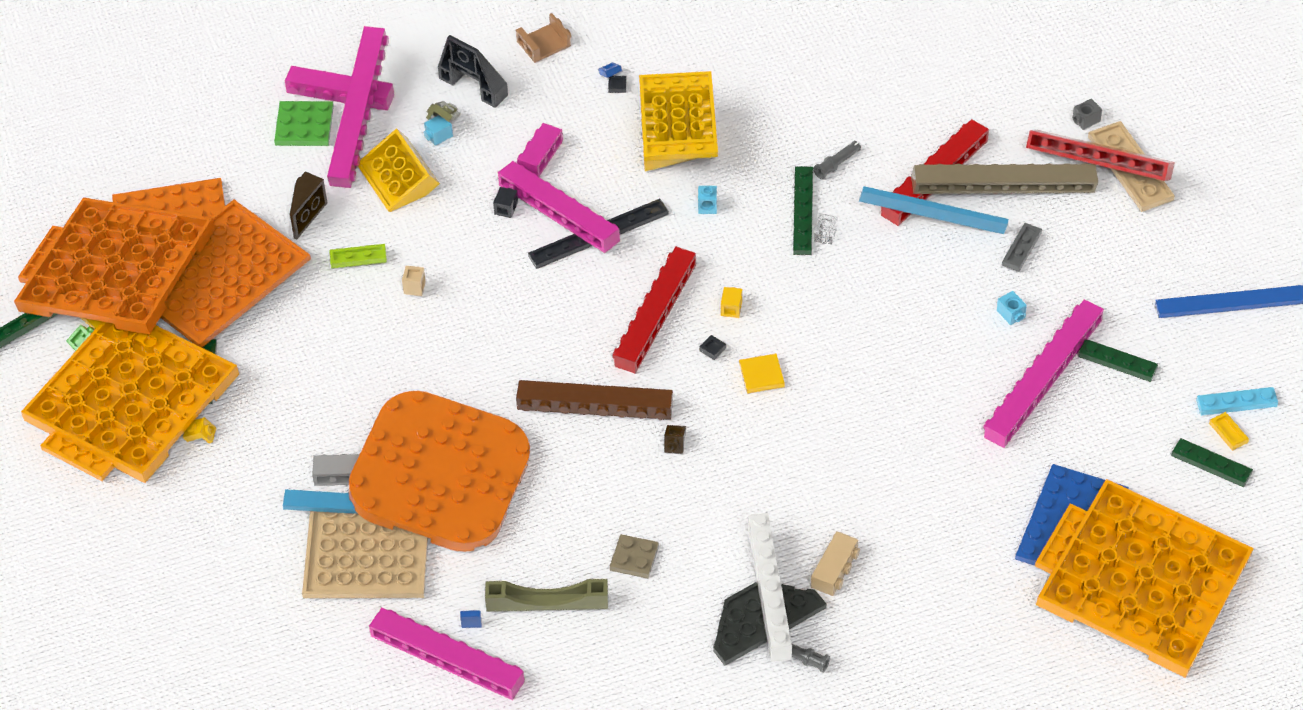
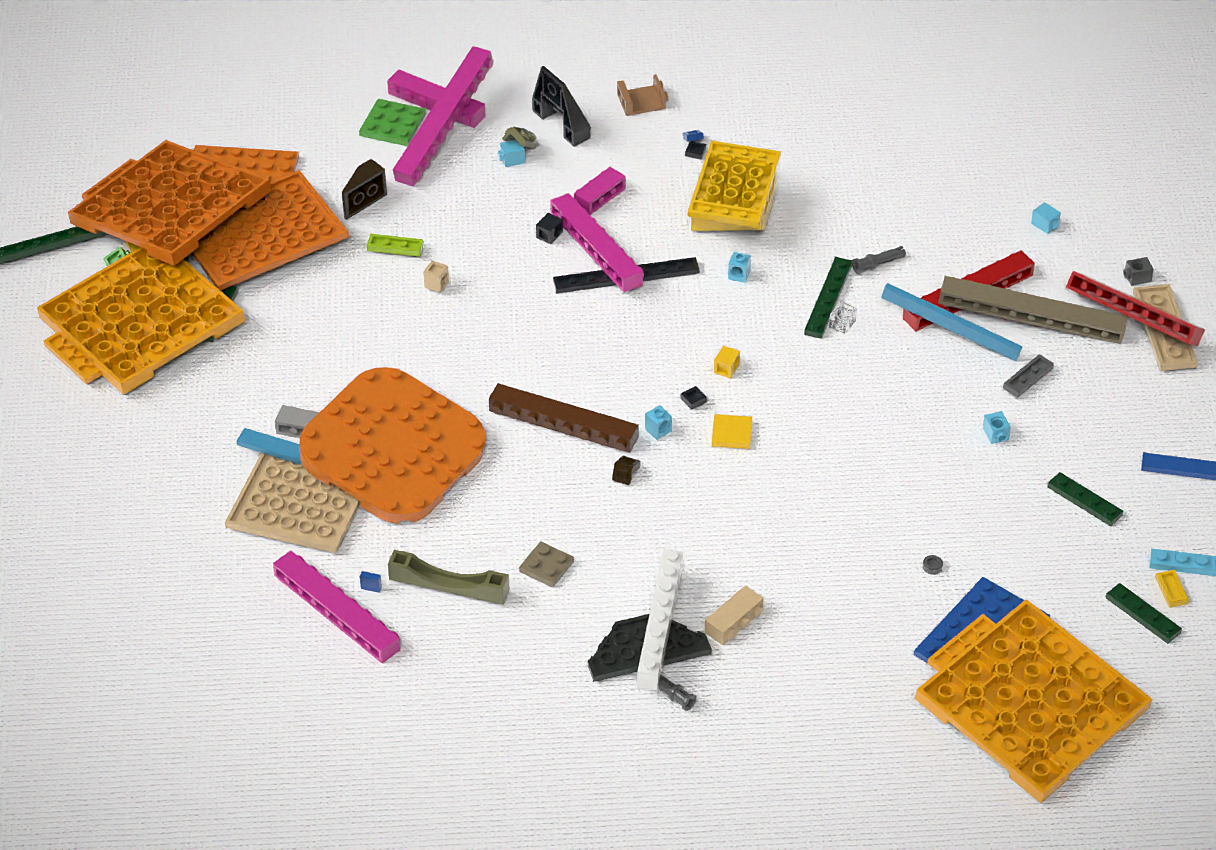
camera: 15 degrees right, 5 degrees down
(200, 429) = (191, 359): yellow bracket -> none
(397, 172) = (460, 180): yellow slope -> none
(655, 310) = (651, 352): red brick -> none
(689, 382) = (658, 422): none -> medium azure brick
(981, 79) = (1046, 218): none -> medium azure brick
(1000, 463) = (932, 564): none -> dark grey tile
(1043, 373) = (1004, 493): dark pink brick -> none

